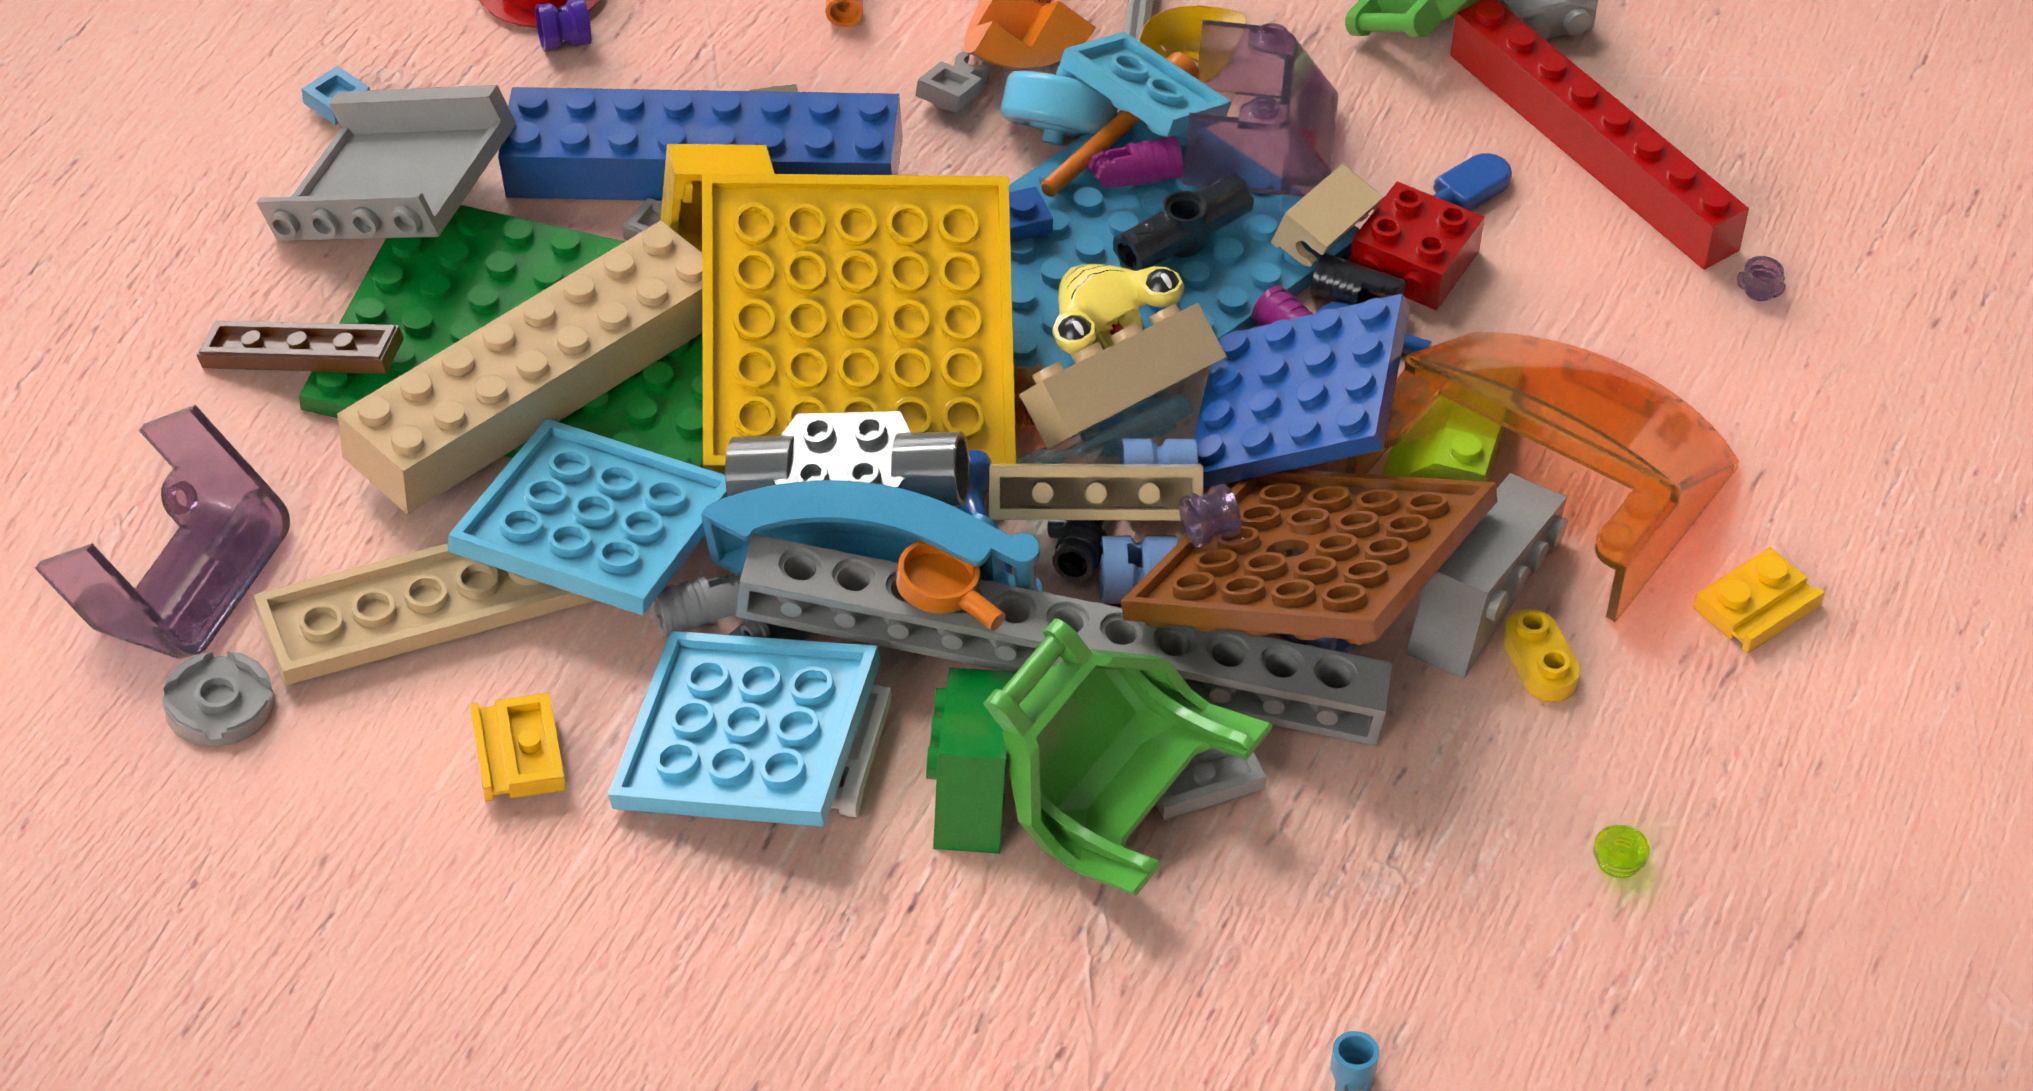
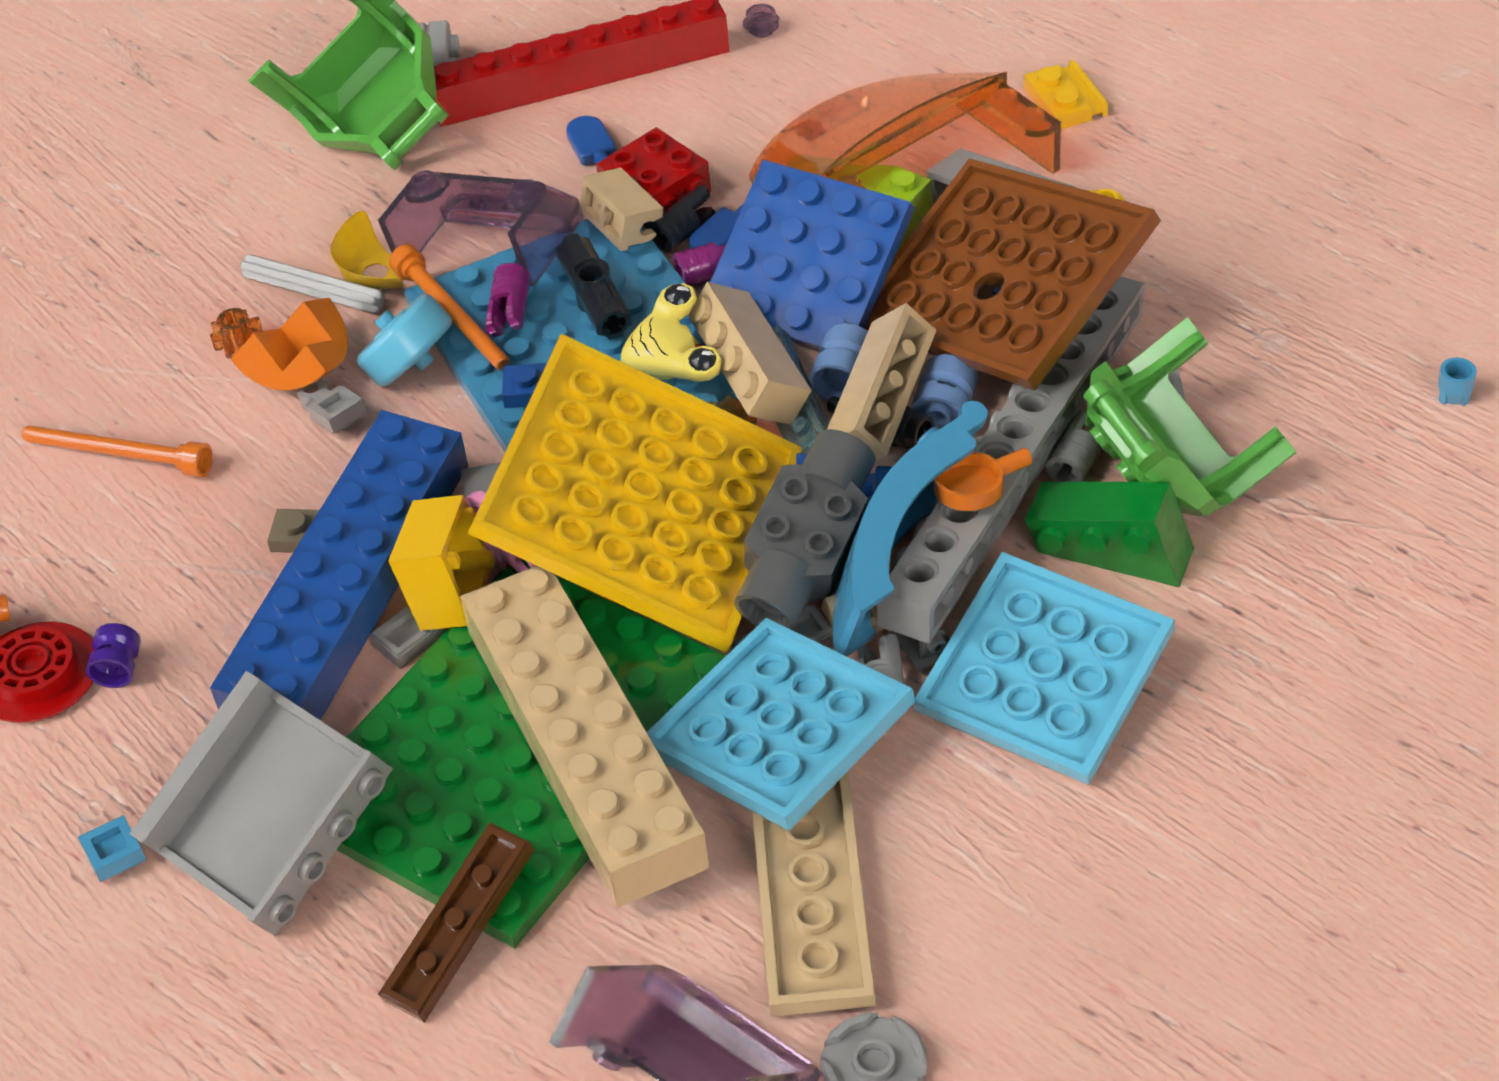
camera: 65 degrees left, 0 degrees up
(517, 747) = (1009, 835): yellow plate -> none
(1142, 82) = (438, 266): medium azure plate -> none
(1210, 515) = (948, 315): clear purple wheel -> none
(1621, 850) = (1282, 210): clear neon green plate -> none

